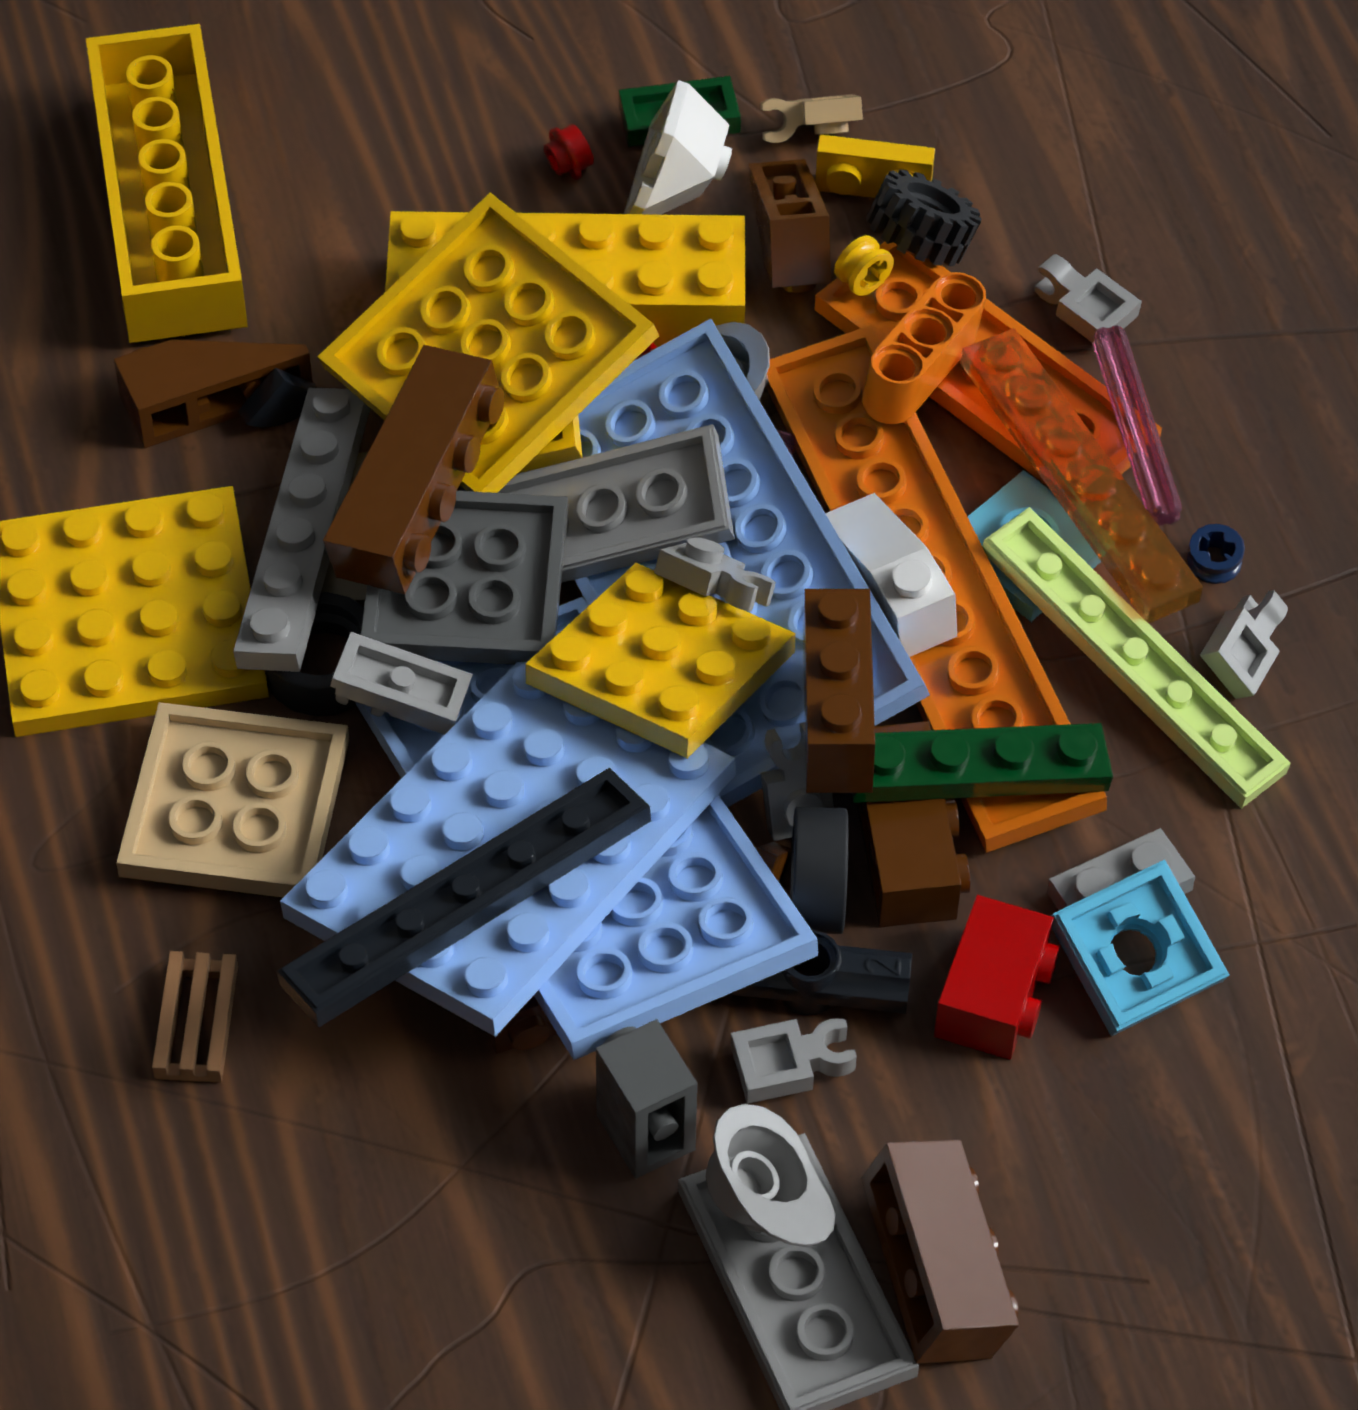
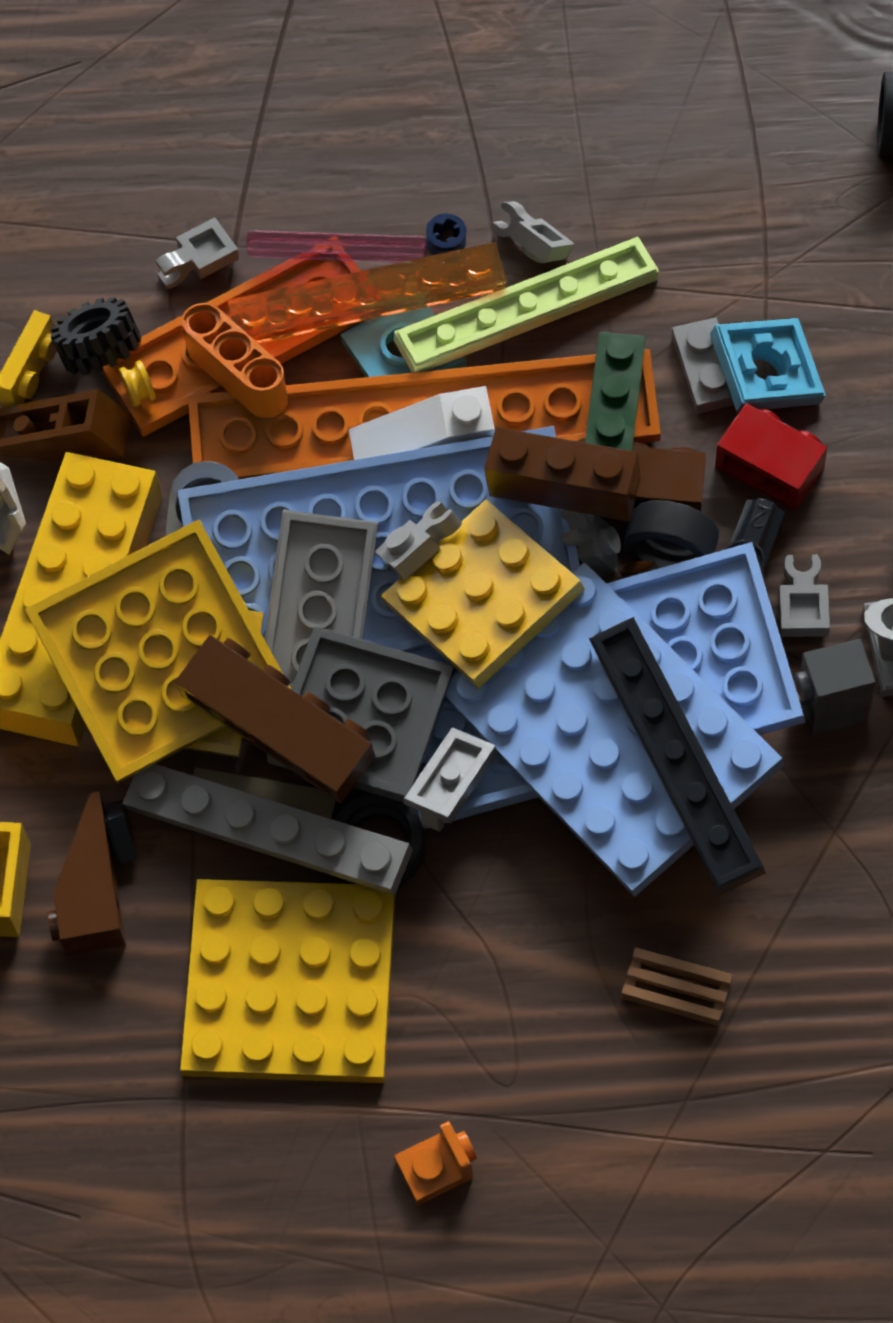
camera: 70 degrees left, 10 degrees up
(232, 800) = (497, 926): tan plate -> none

